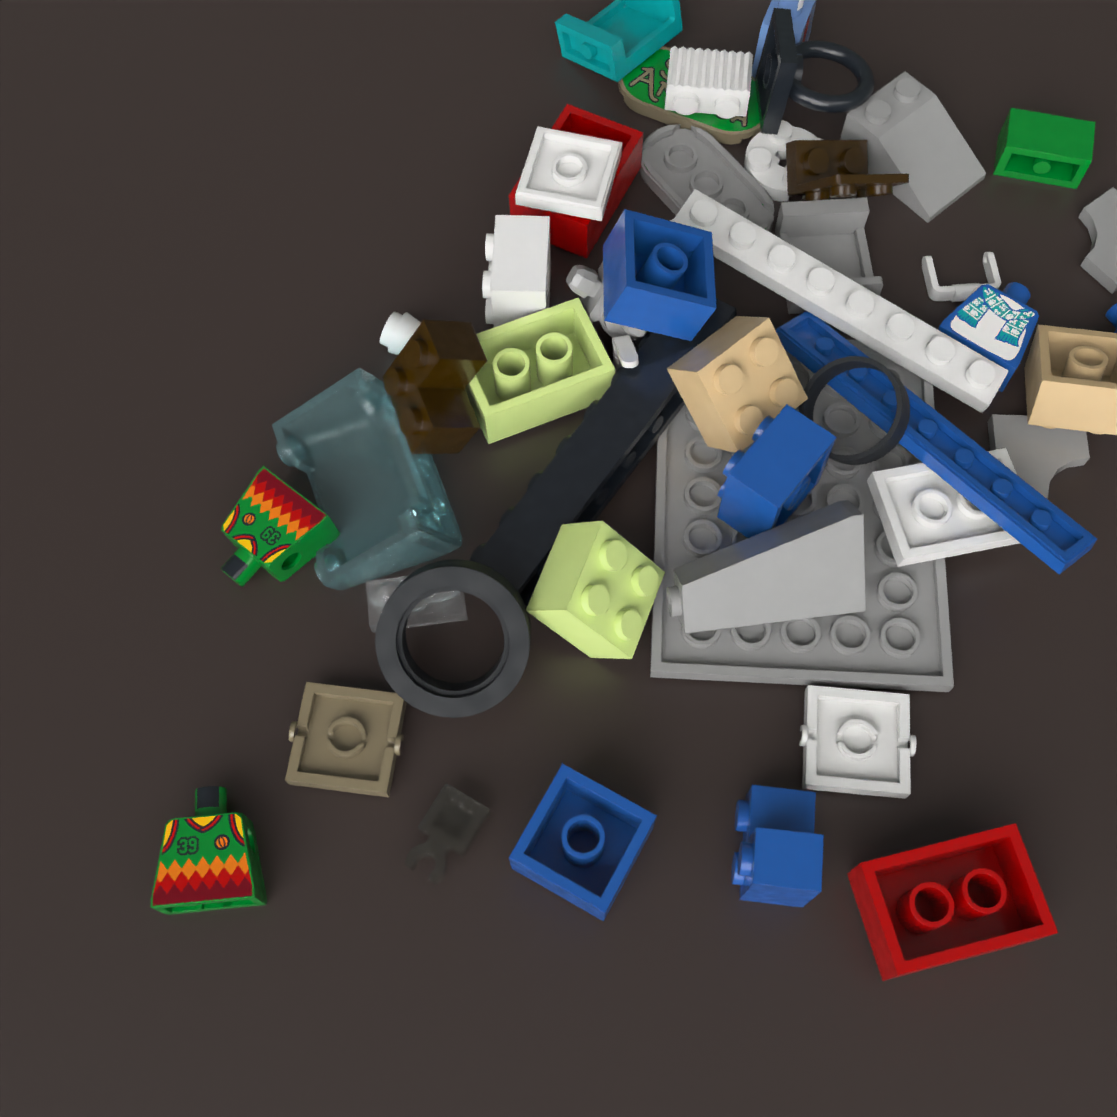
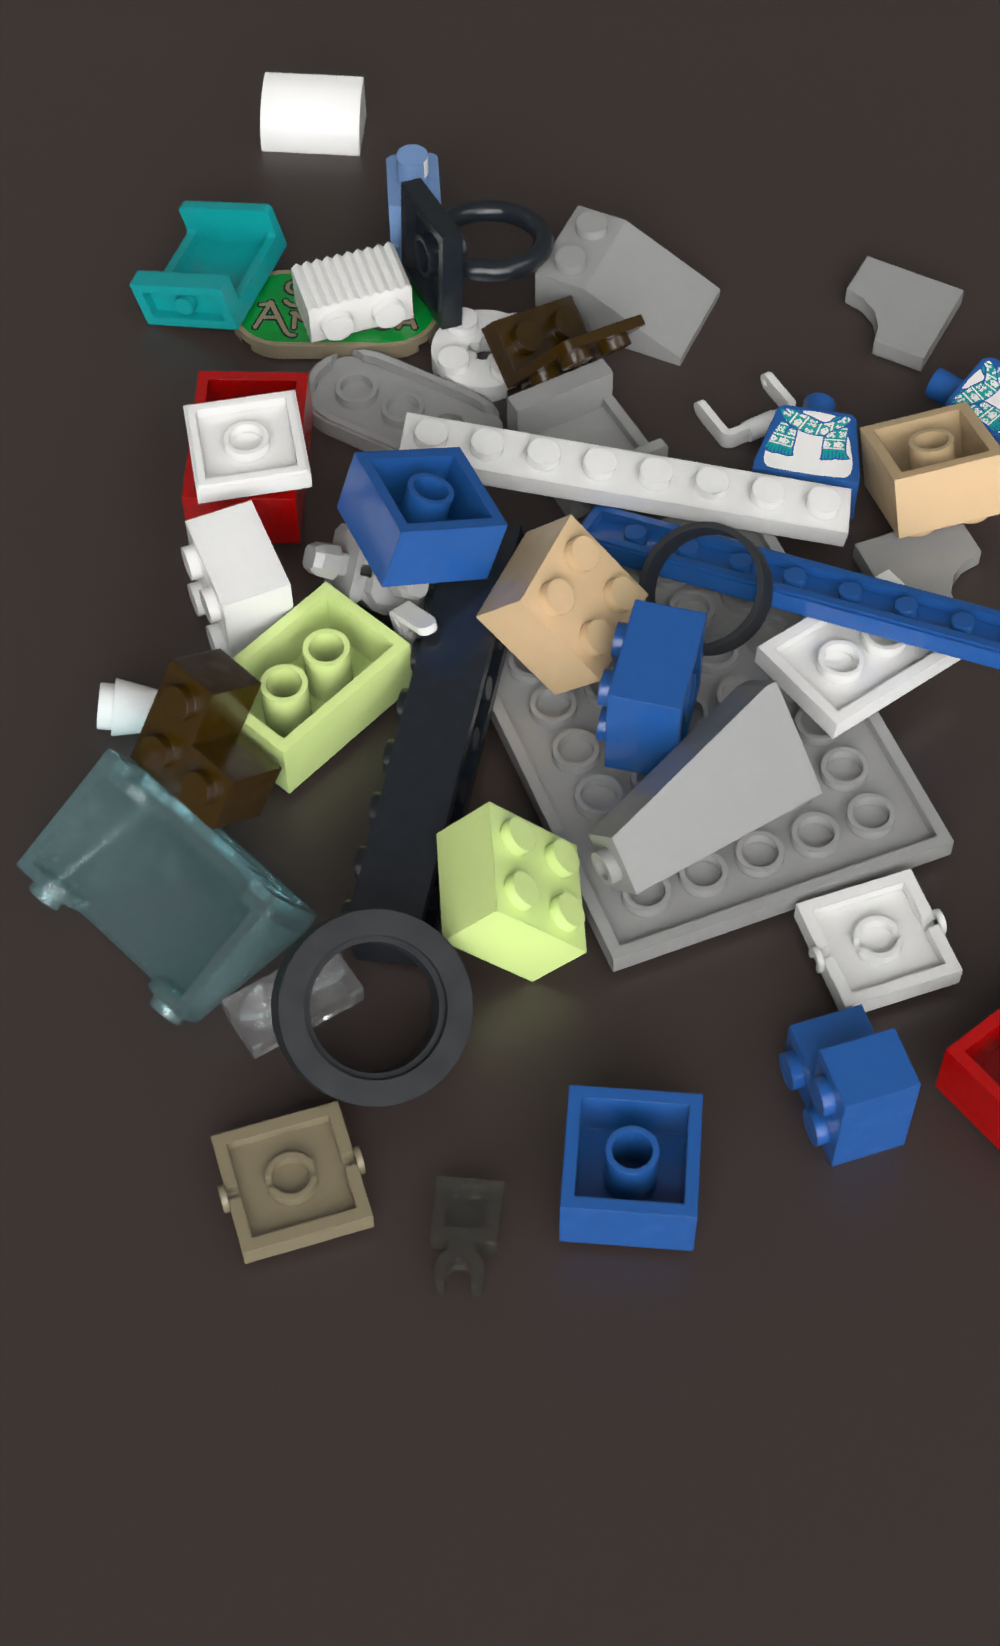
camera: 25 degrees left, 10 degrees down
(208, 860) = (198, 1380): torso -> none
(274, 530) = (80, 984): torso -> none
(1044, 148) = (772, 239): green brick -> none

